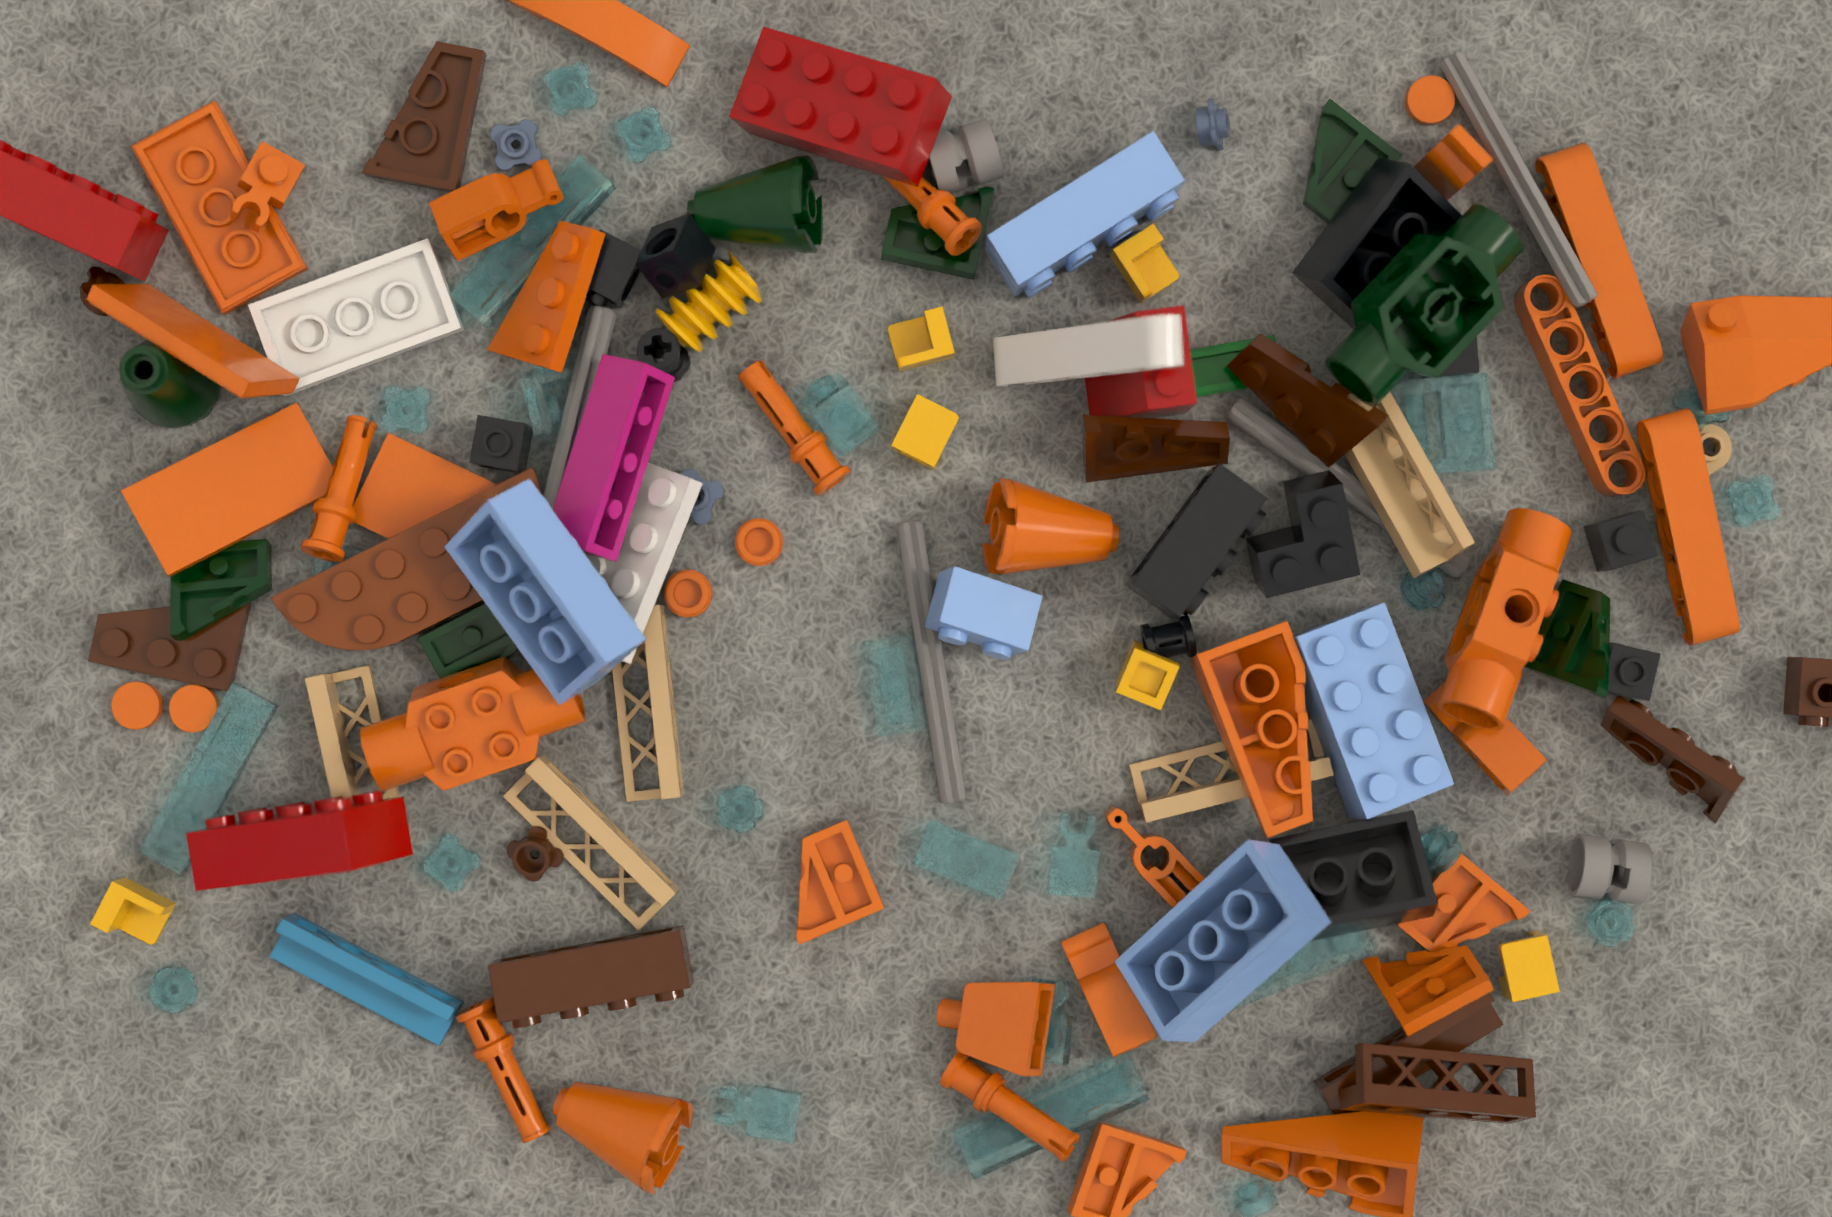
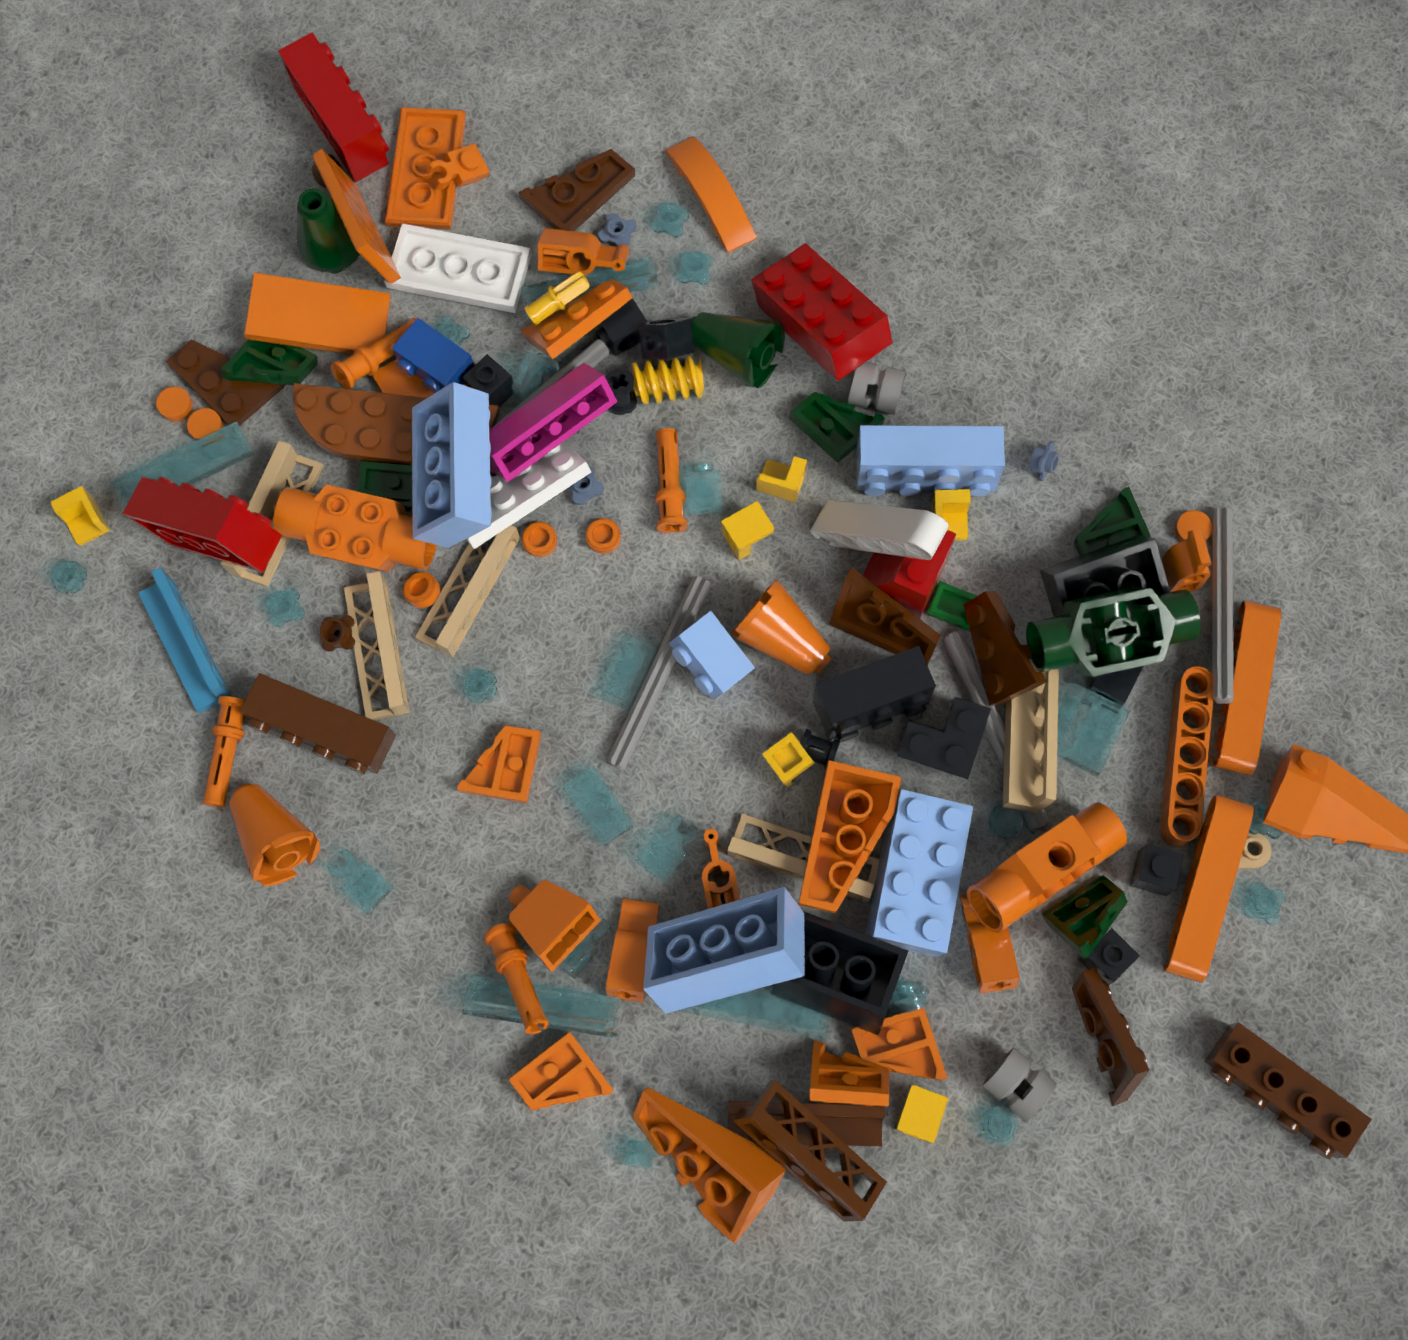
camera: 40 degrees right, 15 degrees down
(415, 459) = (431, 357): none -> blue brick
(512, 289) = (557, 297): none -> yellow axle
(595, 741) = (421, 589): none -> orange tile
(938, 212) = (841, 407): orange pin -> none

